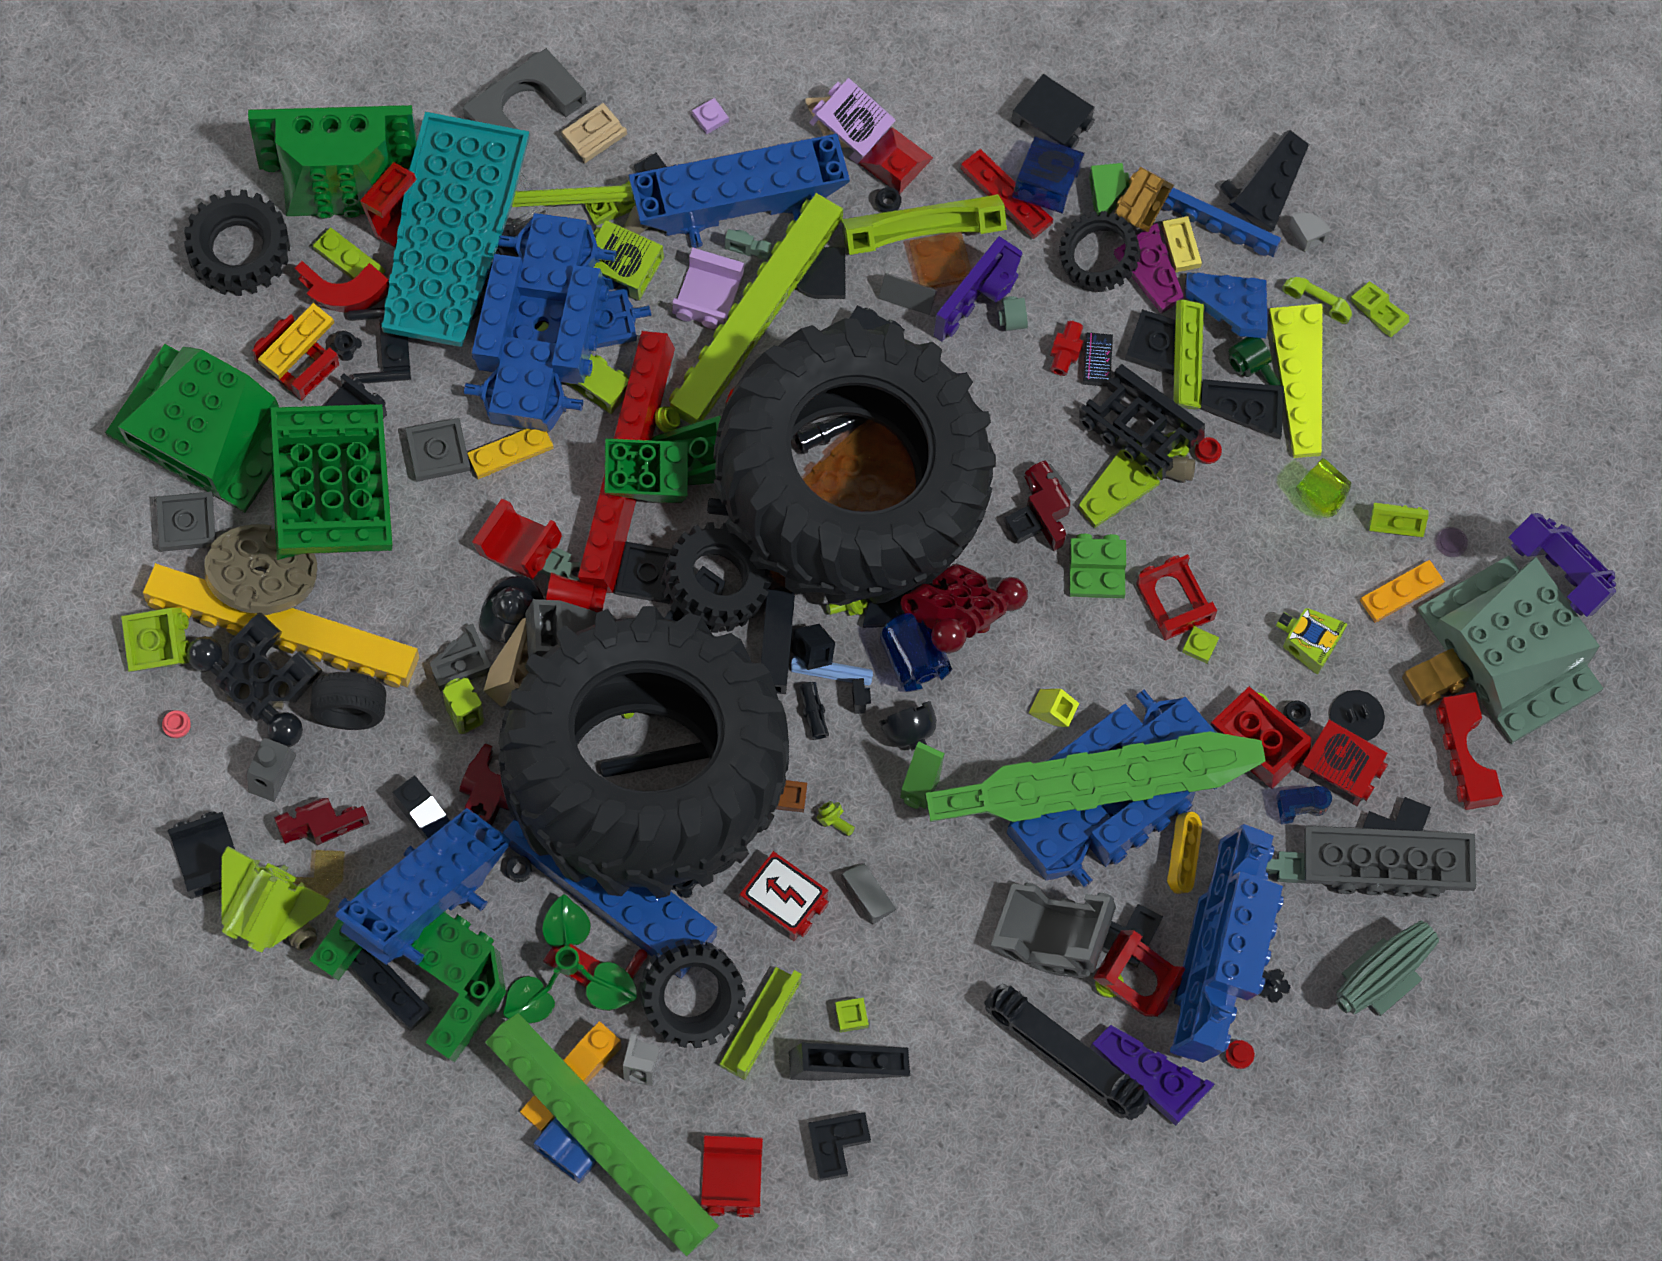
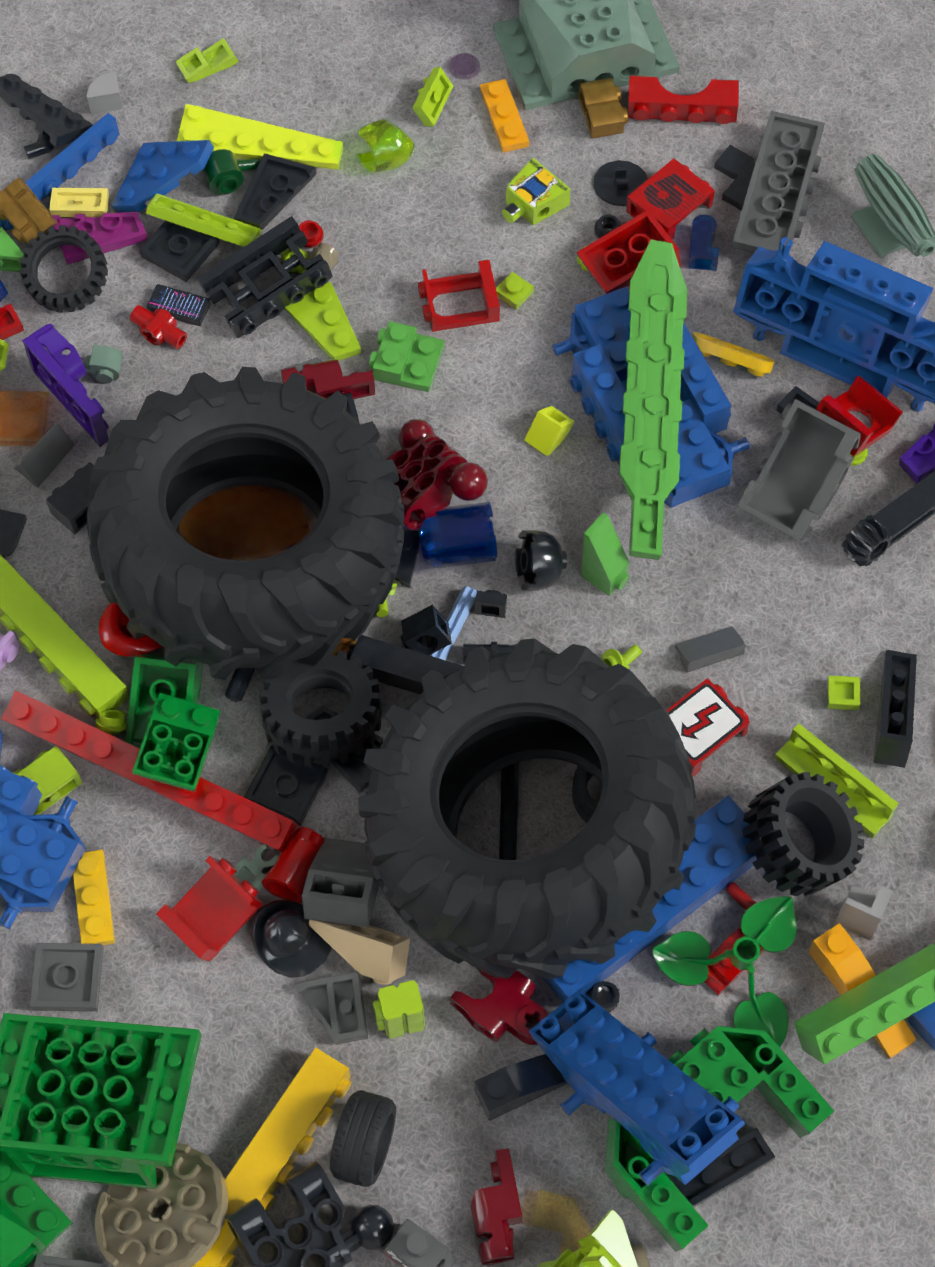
camera: 70 degrees left, 5 degrees down
(1297, 286) = (162, 121): lime bar -> none

